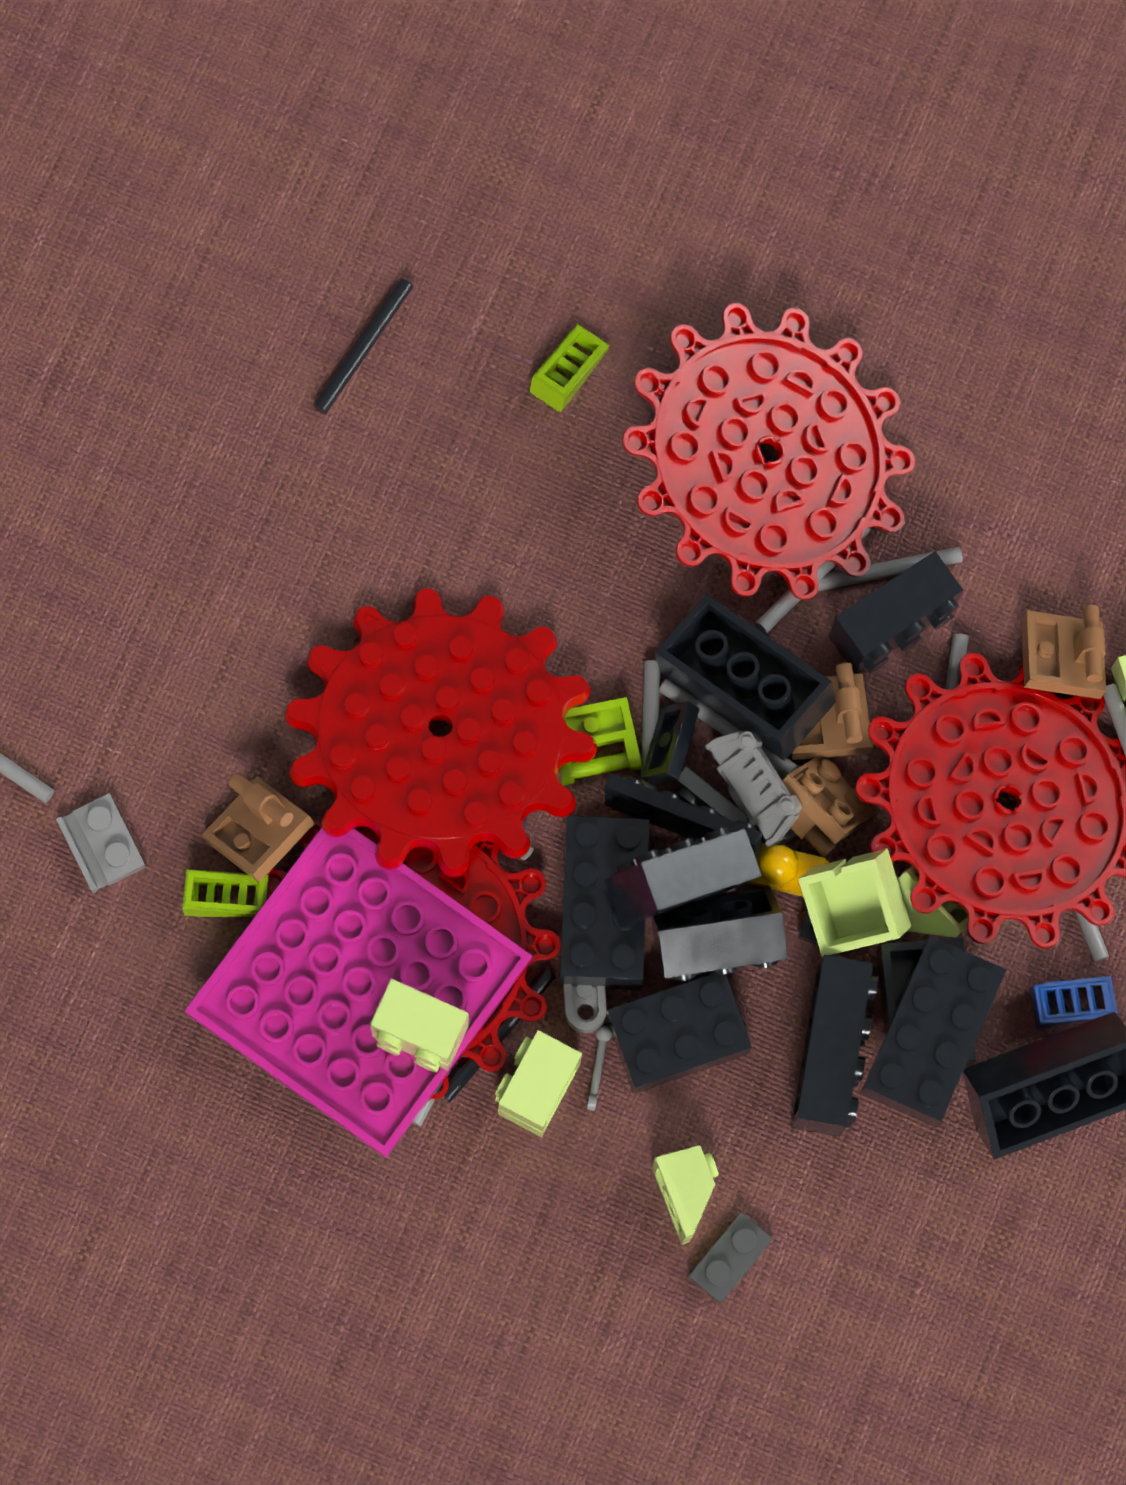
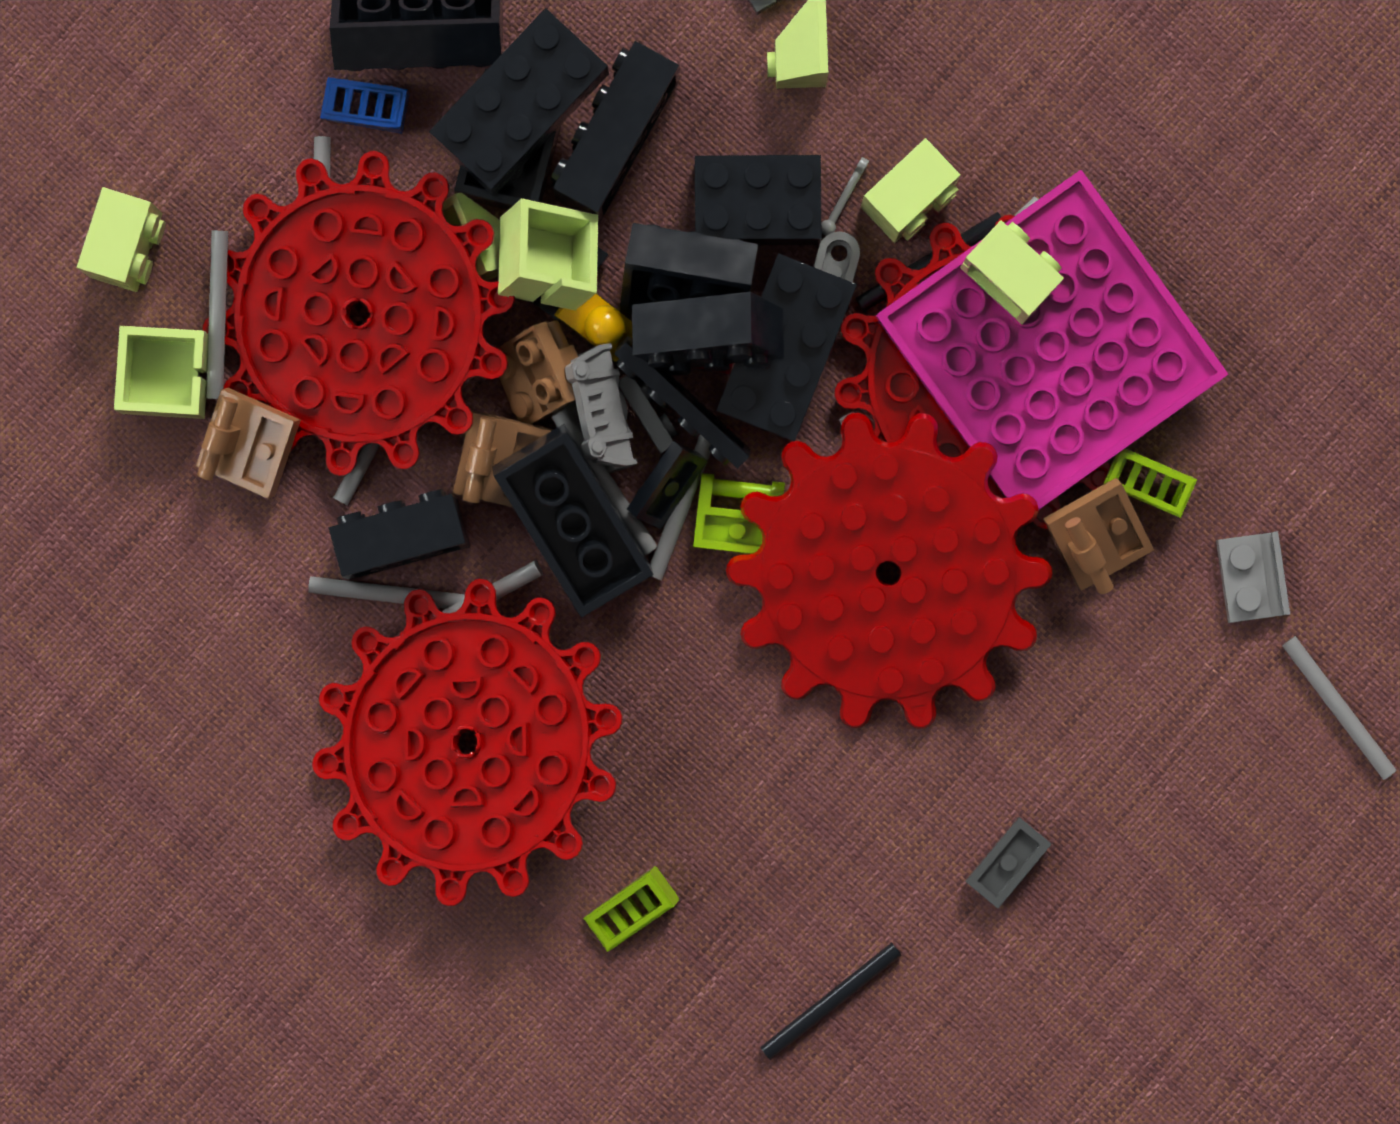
camera: 155 degrees left, 10 degrees up
(244, 514) = (1008, 862): none -> dark grey plate

